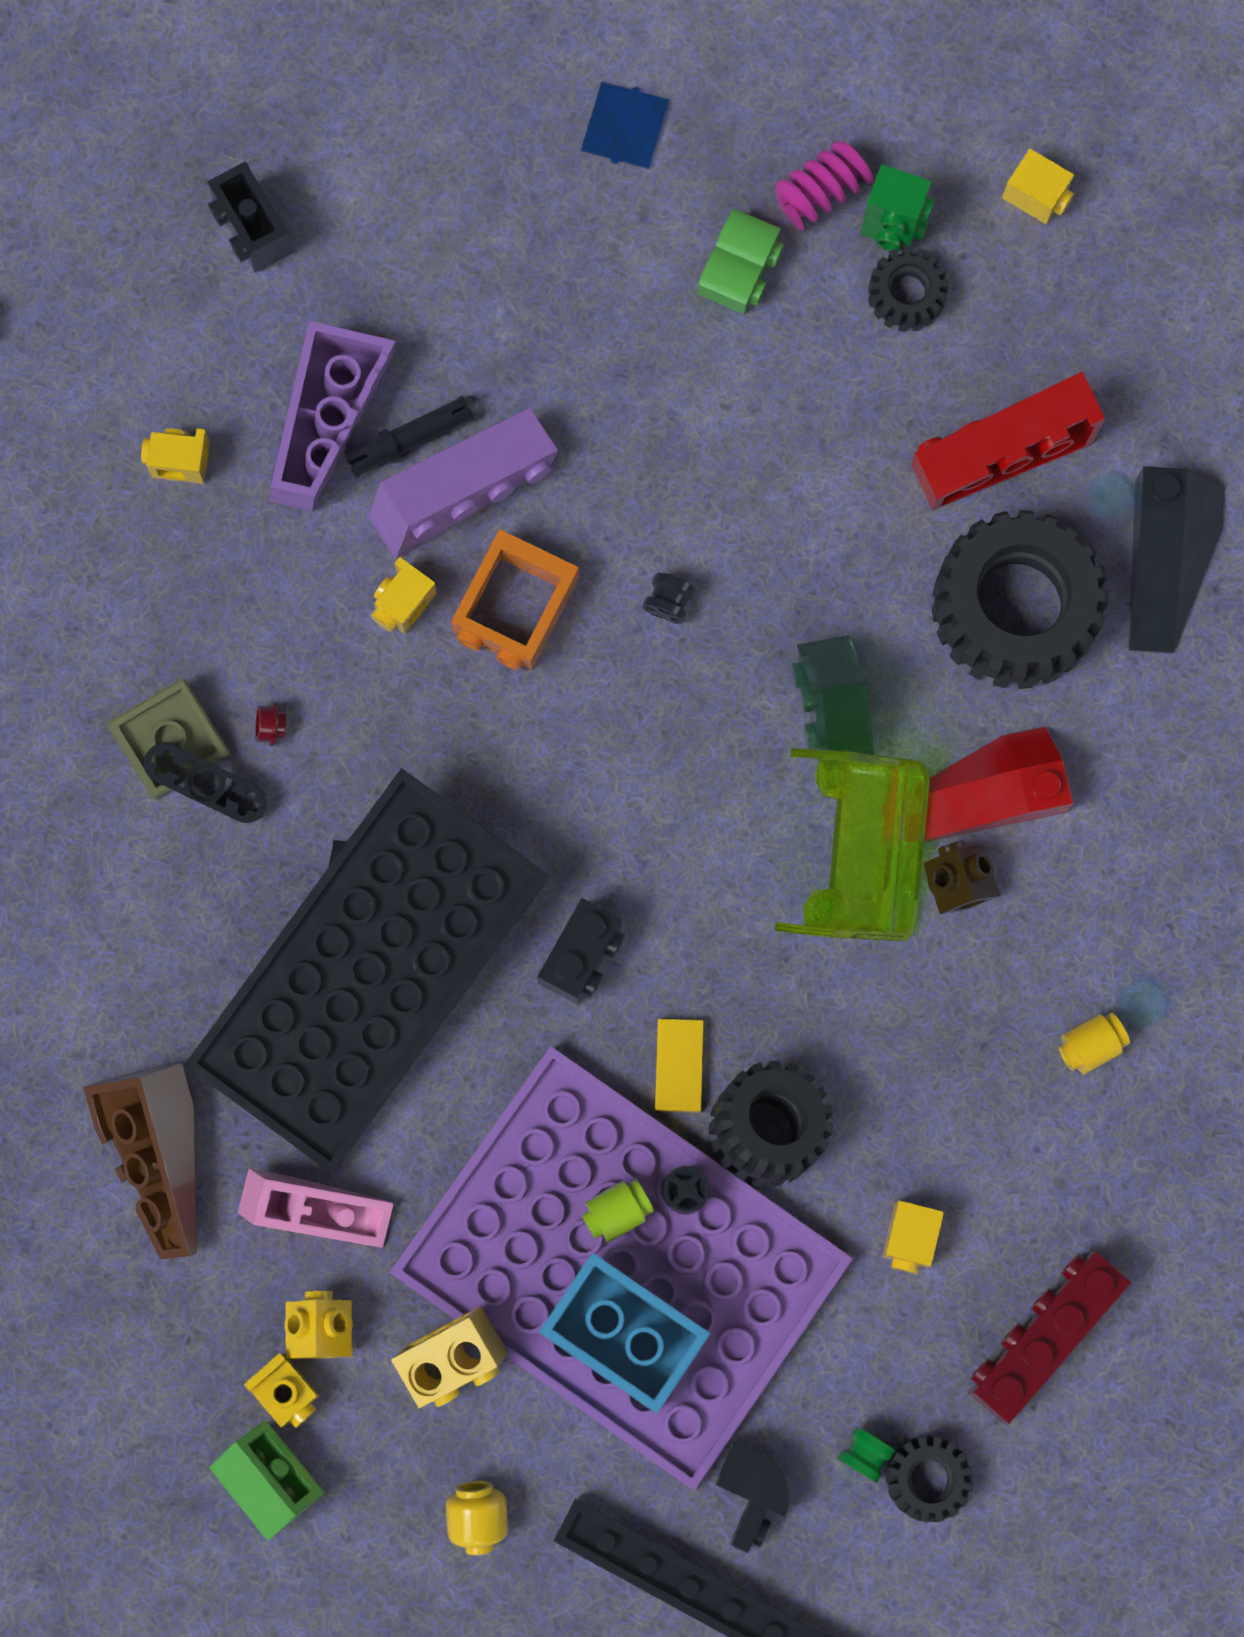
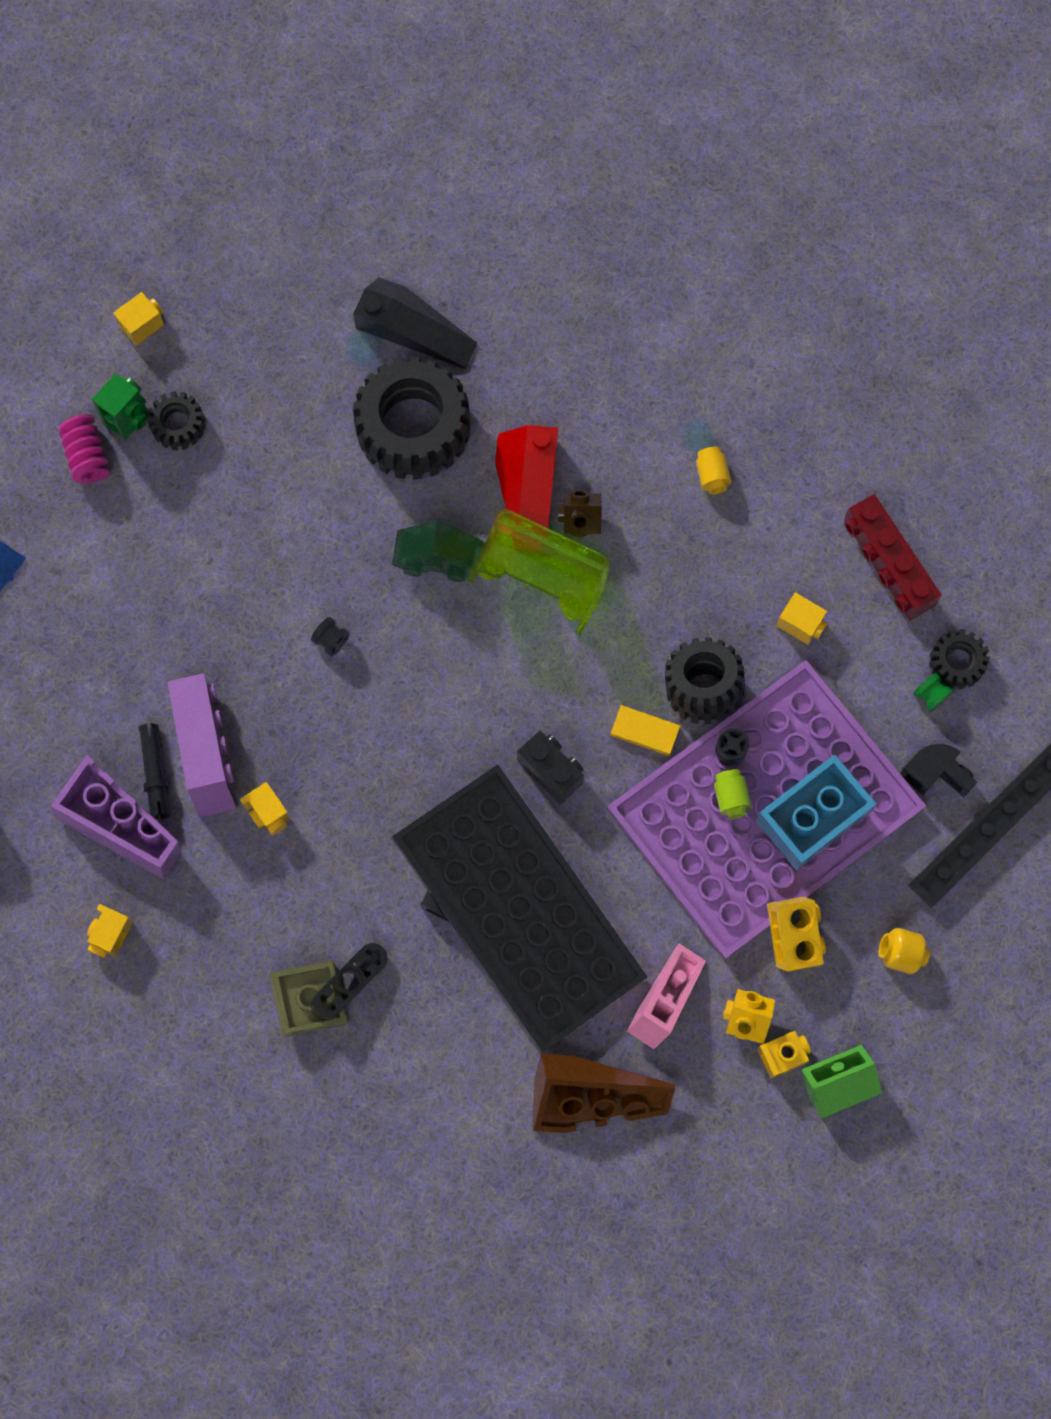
camera: 70 degrees left, 5 degrees down
(269, 724) = (322, 926): dark red plate -> none
(534, 561) = (277, 711): orange window -> none
(739, 262) = (116, 518): bright green brick -> none
(1009, 442) = (304, 390): red wedge -> none

